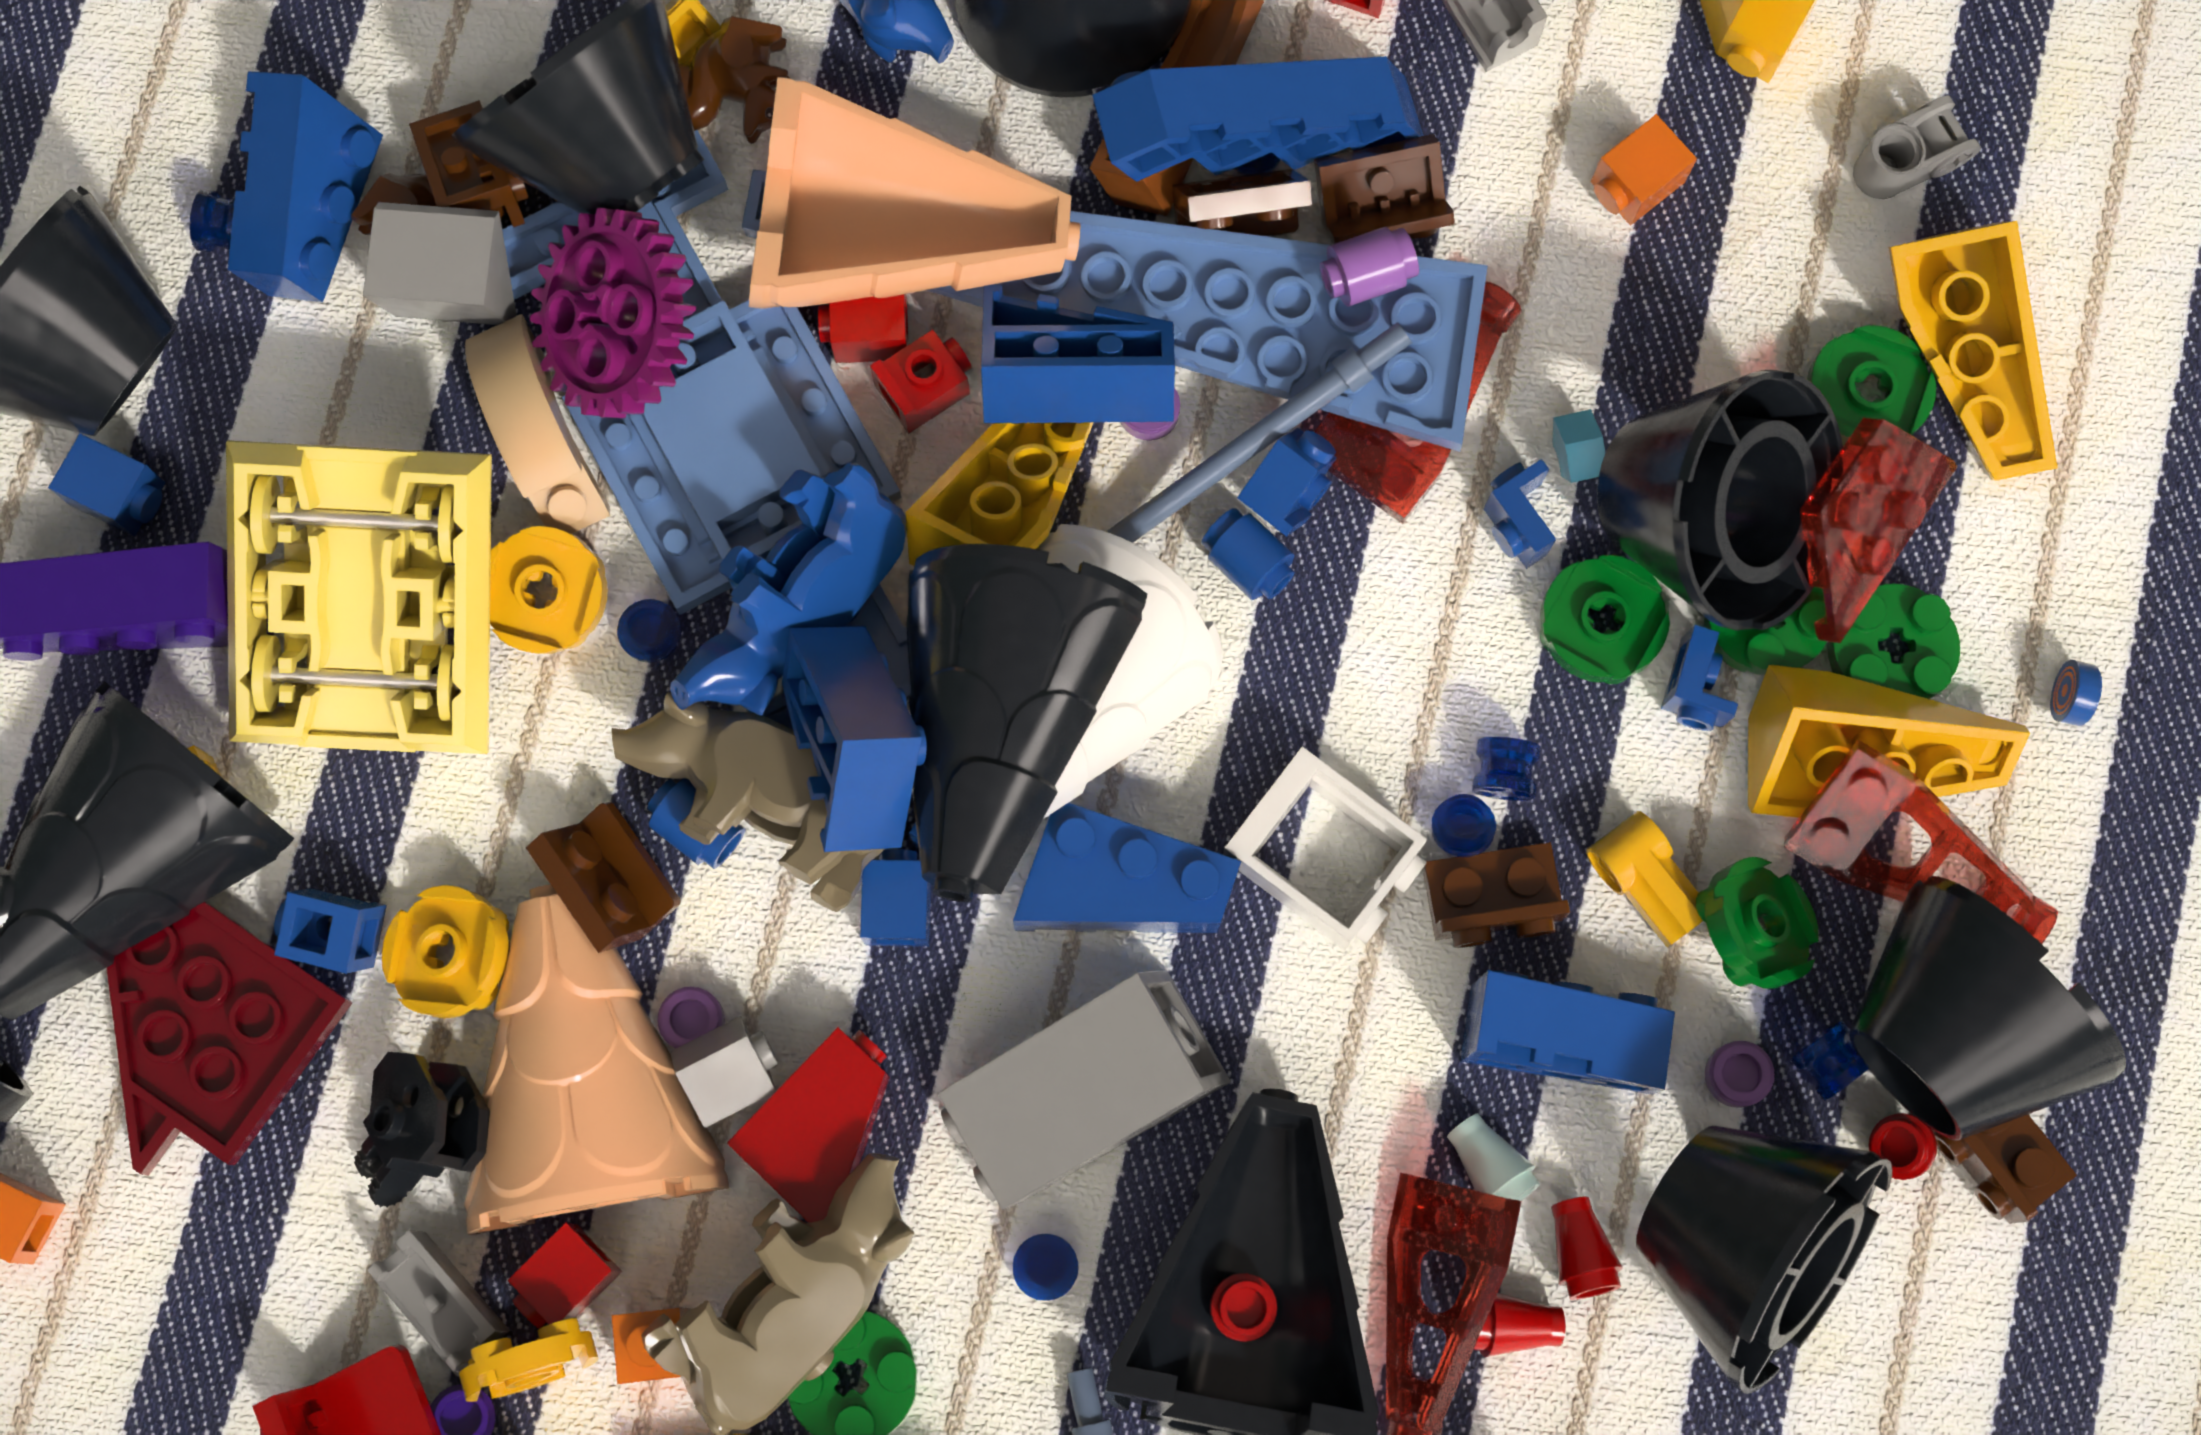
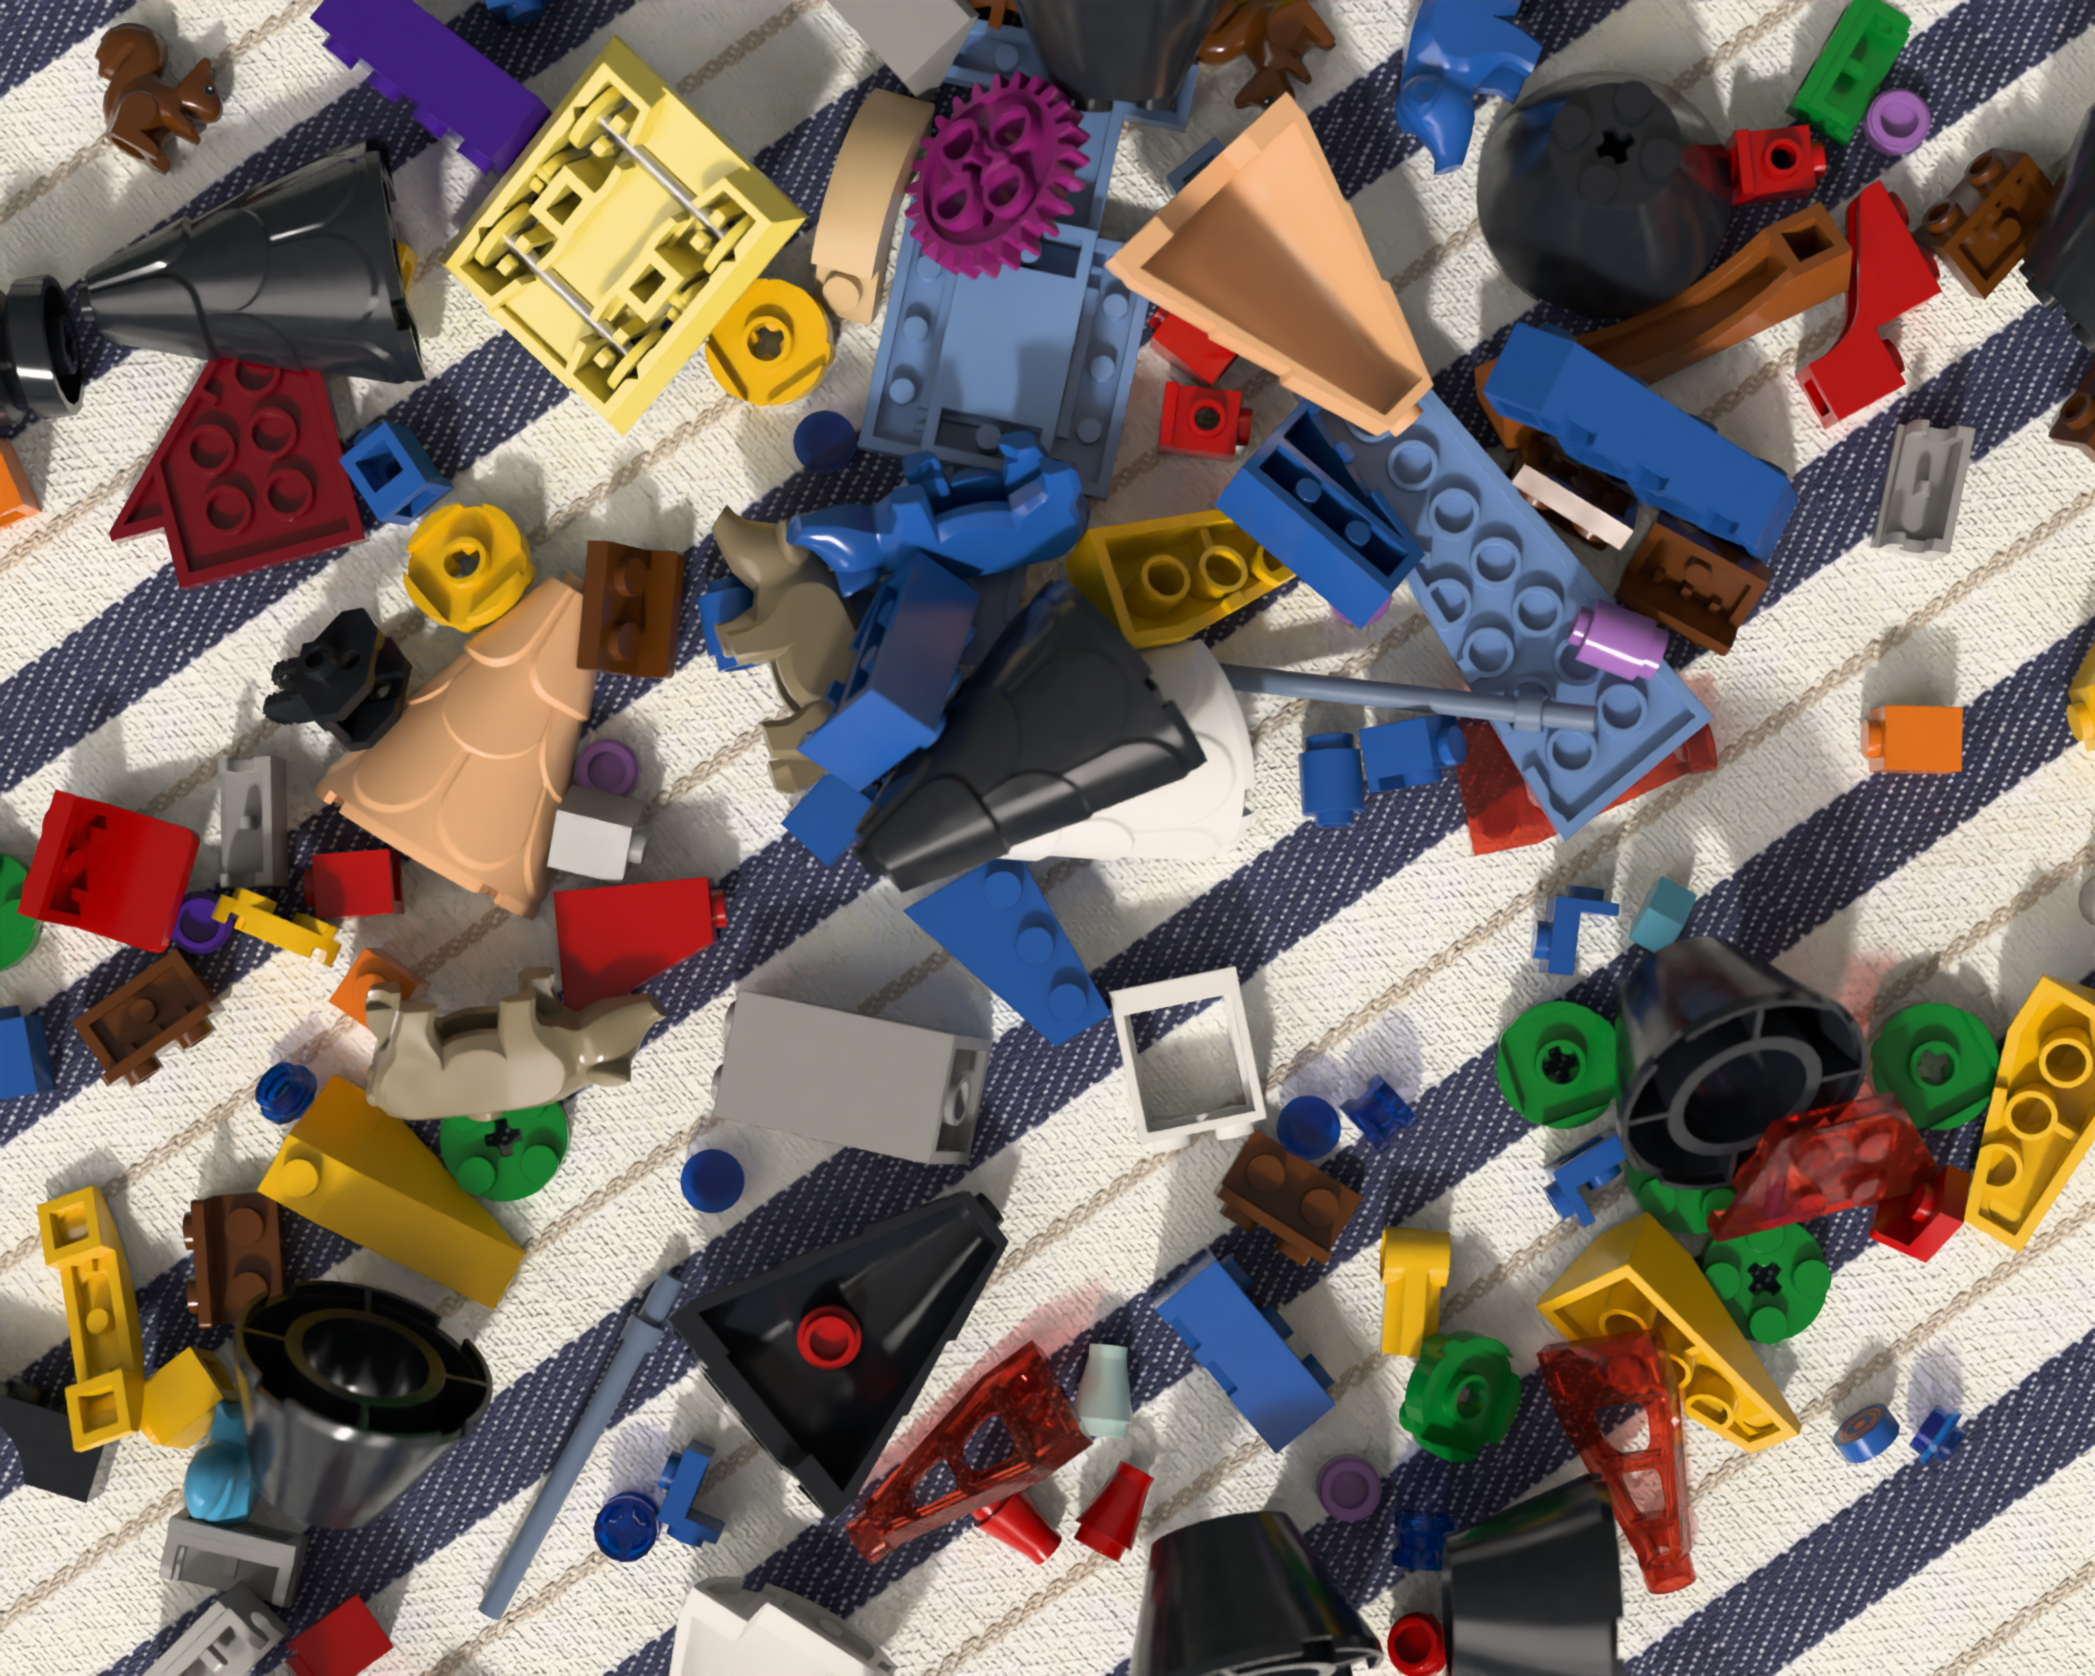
camera: 40 degrees right, 10 degrees up
(1972, 495) = (1924, 1220): none -> red bracket
(2127, 649) = (1938, 1435): none -> clear blue plate

